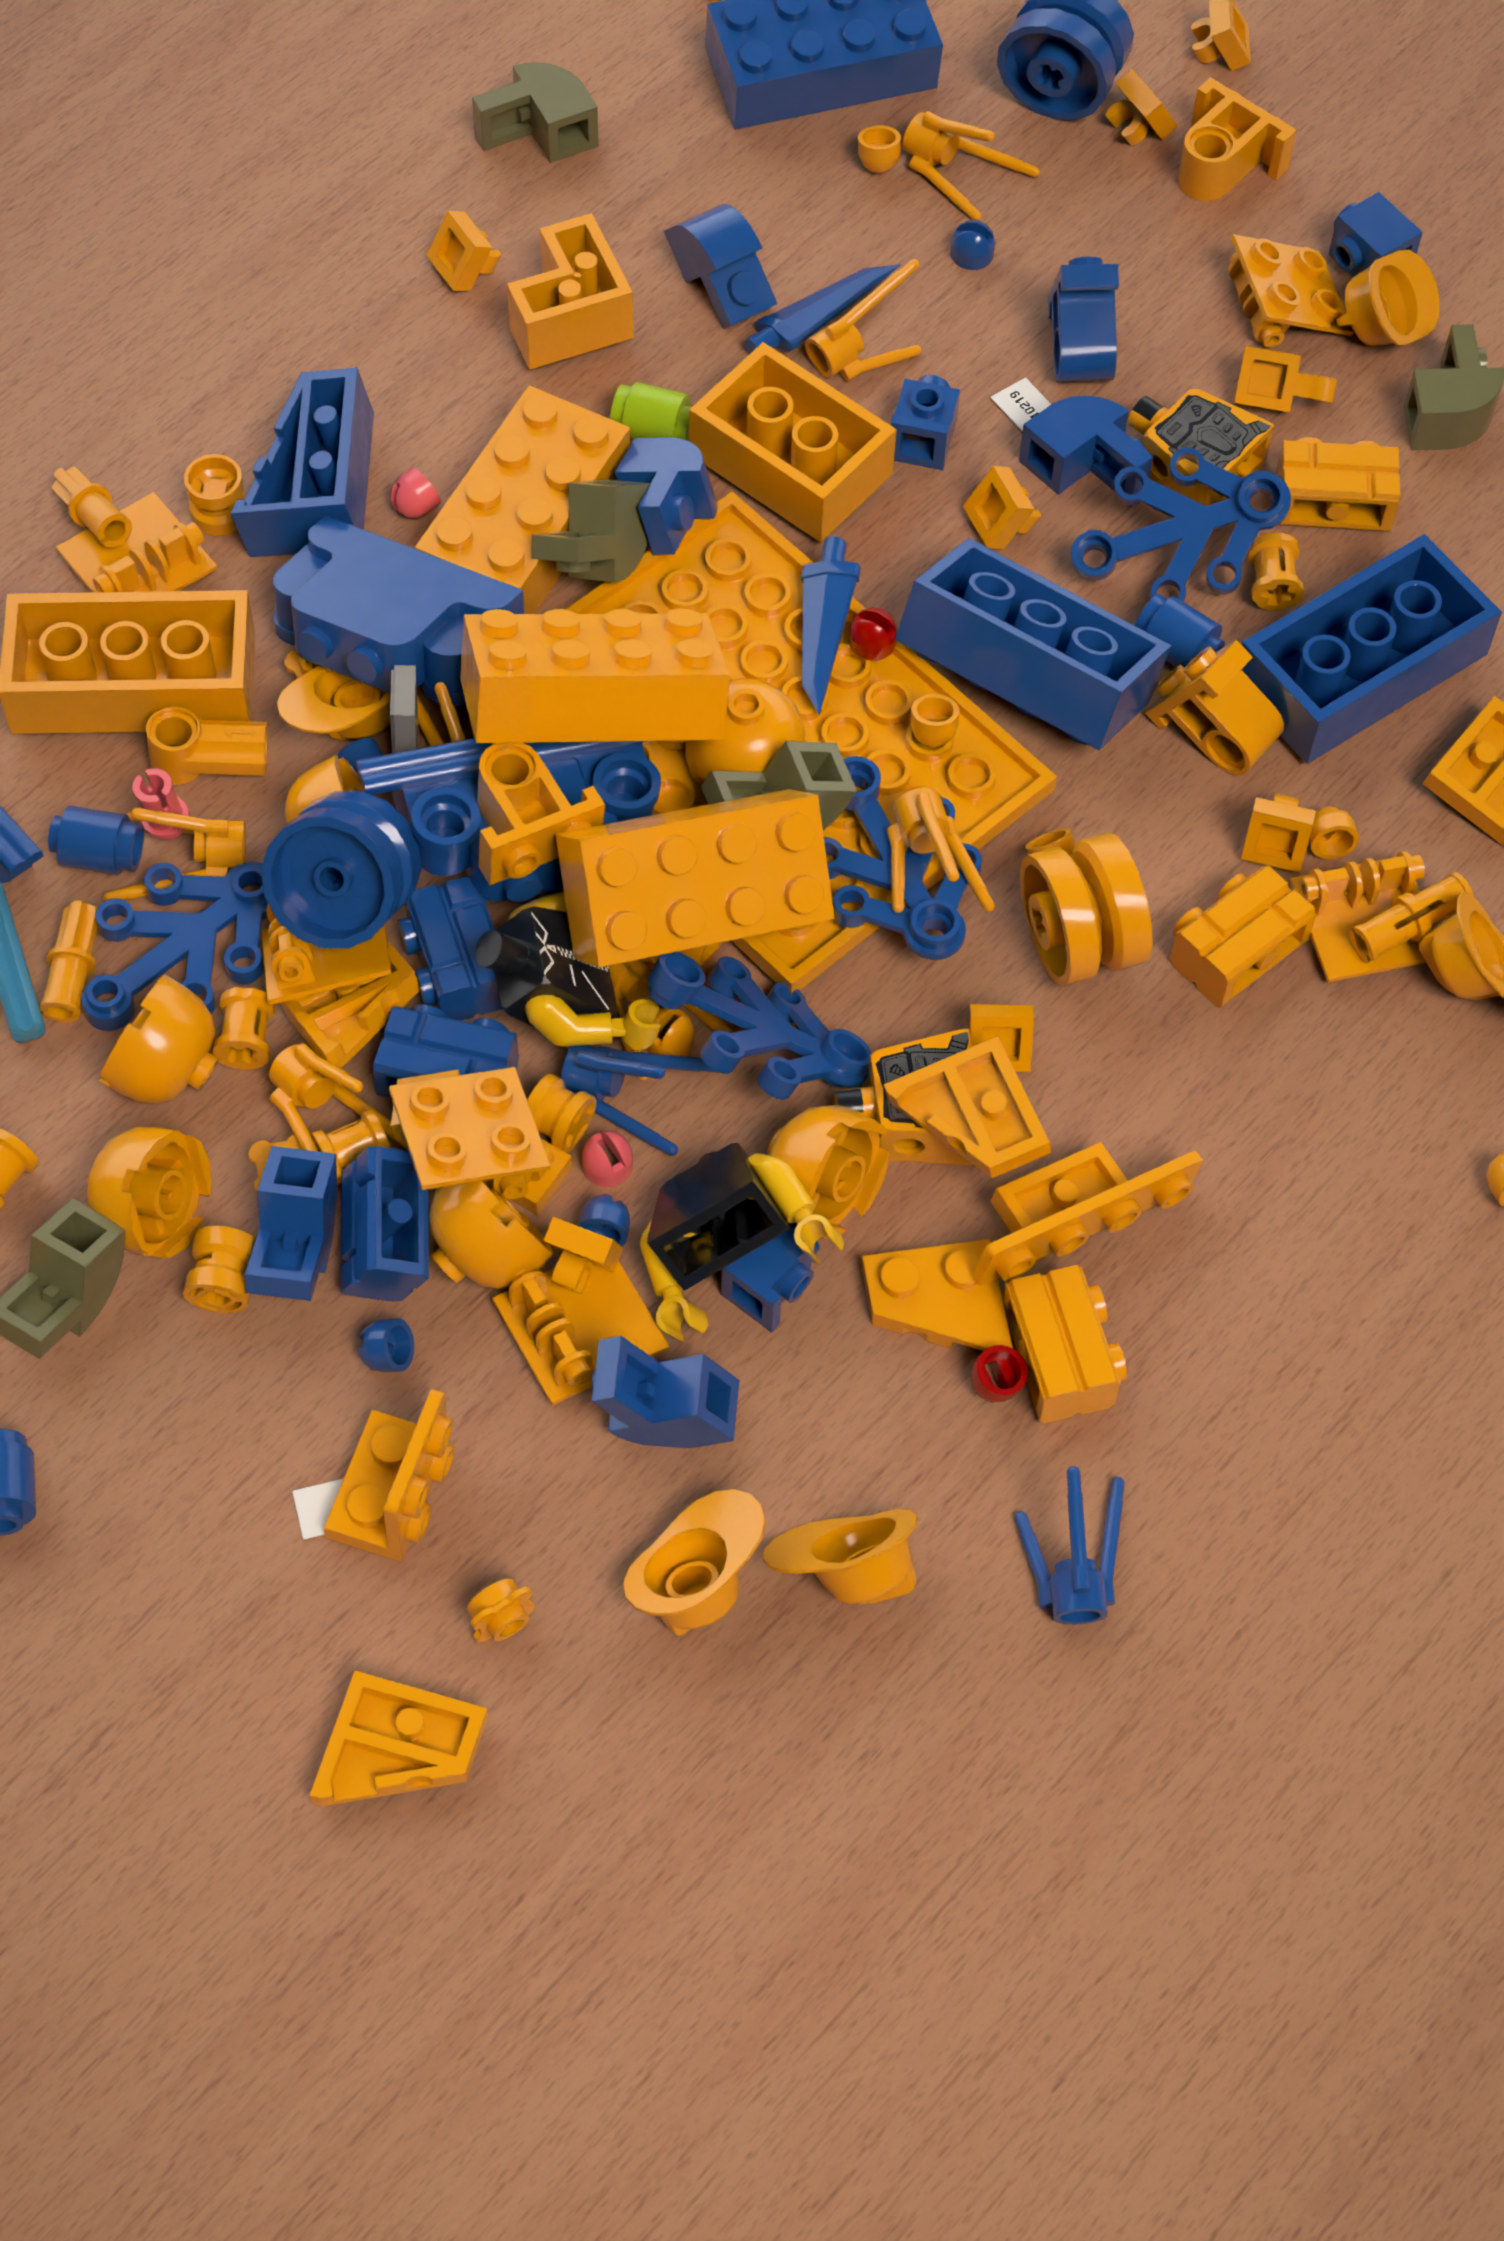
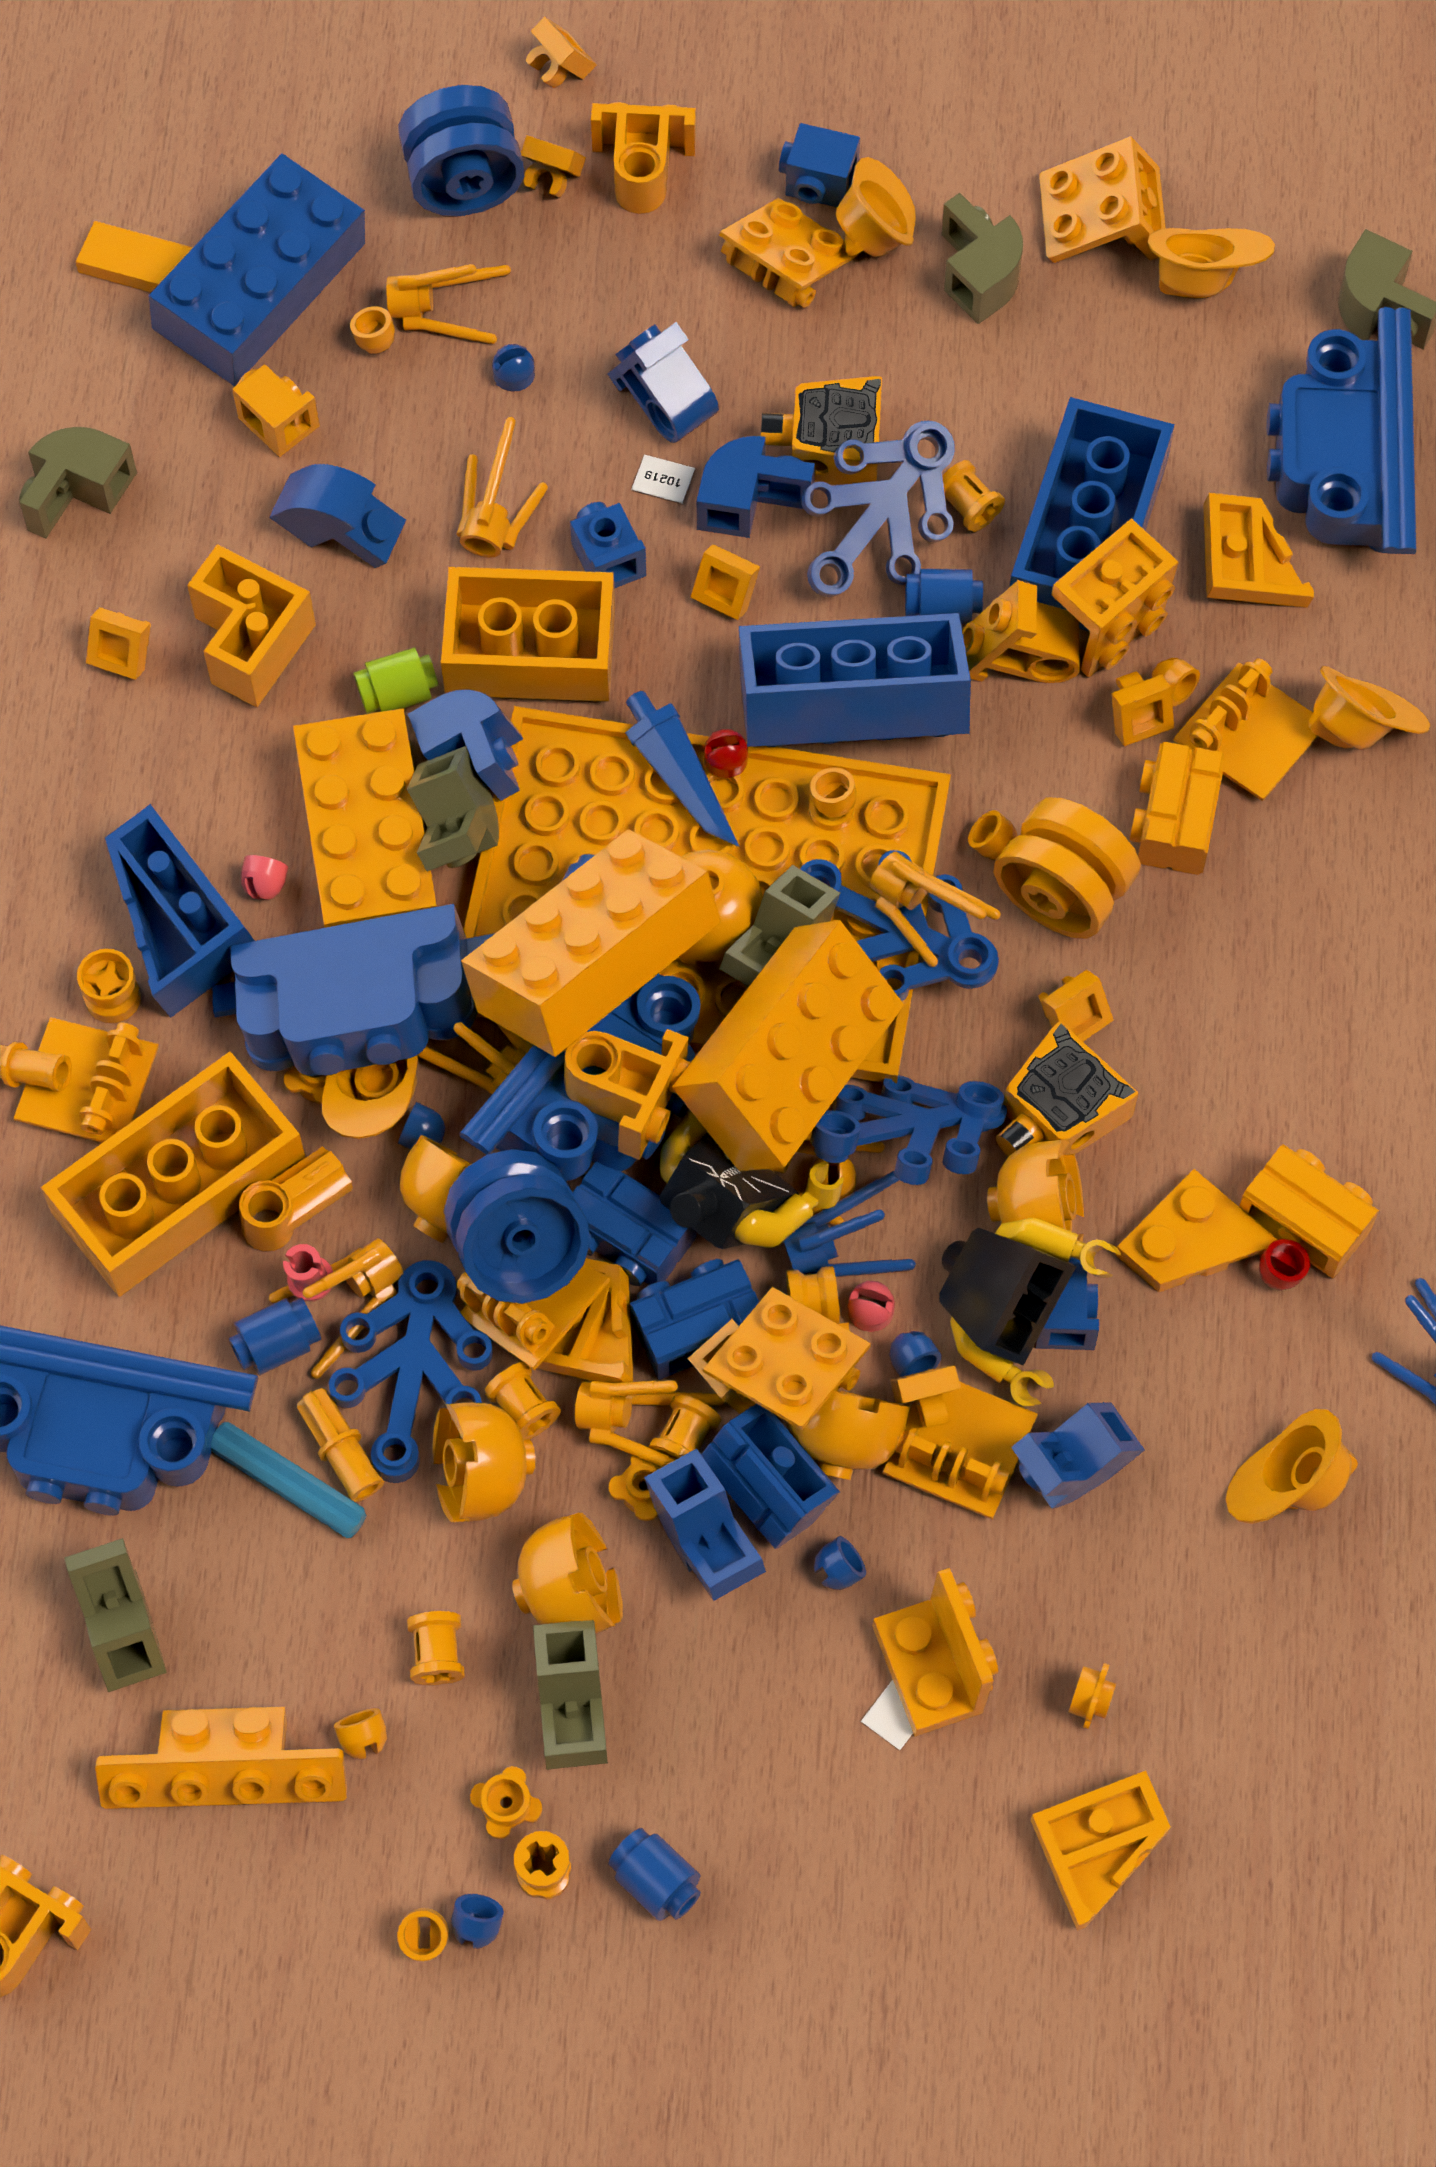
camera: 35 degrees left, 5 degrees up
(220, 1269) = (673, 1597): light orange wheel -> none
(404, 709) = (443, 1075): light grey tile -> none
(696, 1562) = (1200, 1552): light orange piece -> none
(745, 158) = (275, 409): none -> light orange brick
(803, 318) = (435, 515): blue bar -> none
(974, 1108) = (1123, 1079): light orange wing -> none
(1072, 1200) = (1228, 1098): light orange bracket -> none
(1272, 379) = (841, 333): light orange plate -> none
(1326, 719) = (1118, 593): none -> light orange bracket
(1340, 484) = (960, 389): light orange brick -> none
(1379, 933) = (1288, 711): light orange pin -> none

